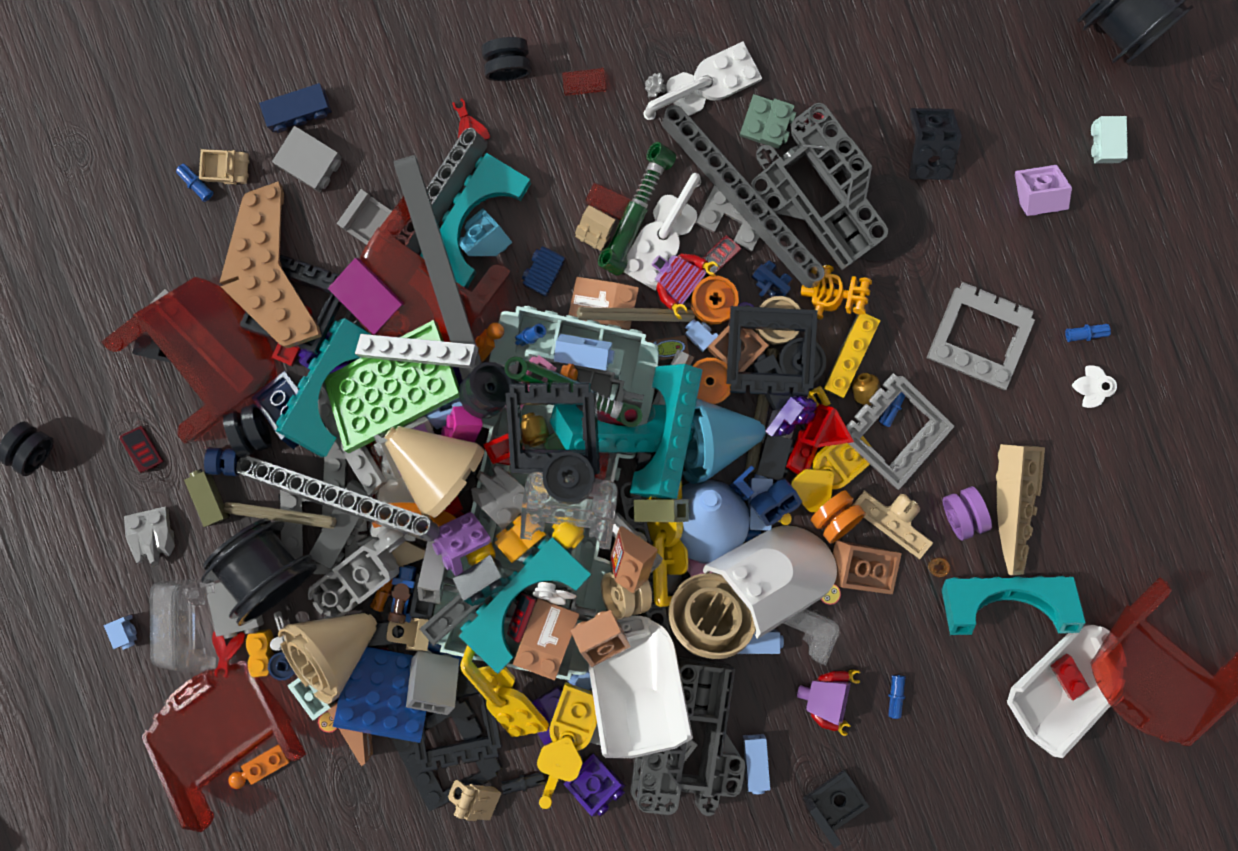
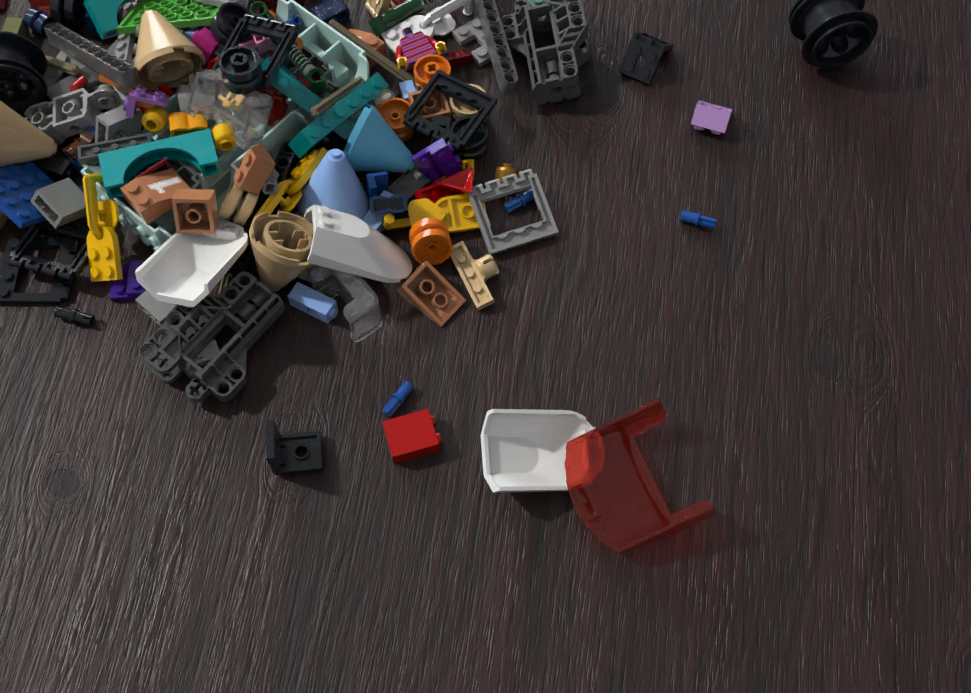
camera: 30 degrees right, 25 degrees down
(347, 542) = (78, 84): none -> red arm
(412, 636) = (73, 171): tan piece -> none
(475, 801) = (29, 304): tan piece -> none
(481, 581) = (140, 129): brick -> none
(548, 592) = (182, 162): white plate -> none
(574, 720) = (113, 299): yellow plate -> none
(583, 352) = (317, 42): light blue brick -> none
(595, 786) = (123, 343): dark purple plate -> none
(656, 415) = (331, 100): none -> dark tan axle
(661, 510) = (299, 156): olive brick -> none
(756, 763) = (255, 390): light blue brick -> none
(770, 282) = (482, 80): dark blue hips -> none
(828, 303) = (520, 106): light orange piece -> none
(829, 698) = (342, 368): medium lavender torso -> none
(832, 596) = (393, 301): tile -> none
(850, 355) = (508, 151): yellow piece -> none
(934, 728) = (412, 435): none -> red brick
(942, 573) = (490, 329): clear orange bush -> none
(967, 513) = (530, 287): medium lavender wheel -> none
(970, 363) = (599, 203): light grey hinge -> none
(1017, 487) = (579, 302): tan wedge -> none
(1052, 595) = (496, 349): teal arch -> none
(1069, 677) = (546, 451): red plate -> none
(1092, 386) = (683, 258): white plate -> none
(1109, 139) = (779, 108): light aqua brick -> none

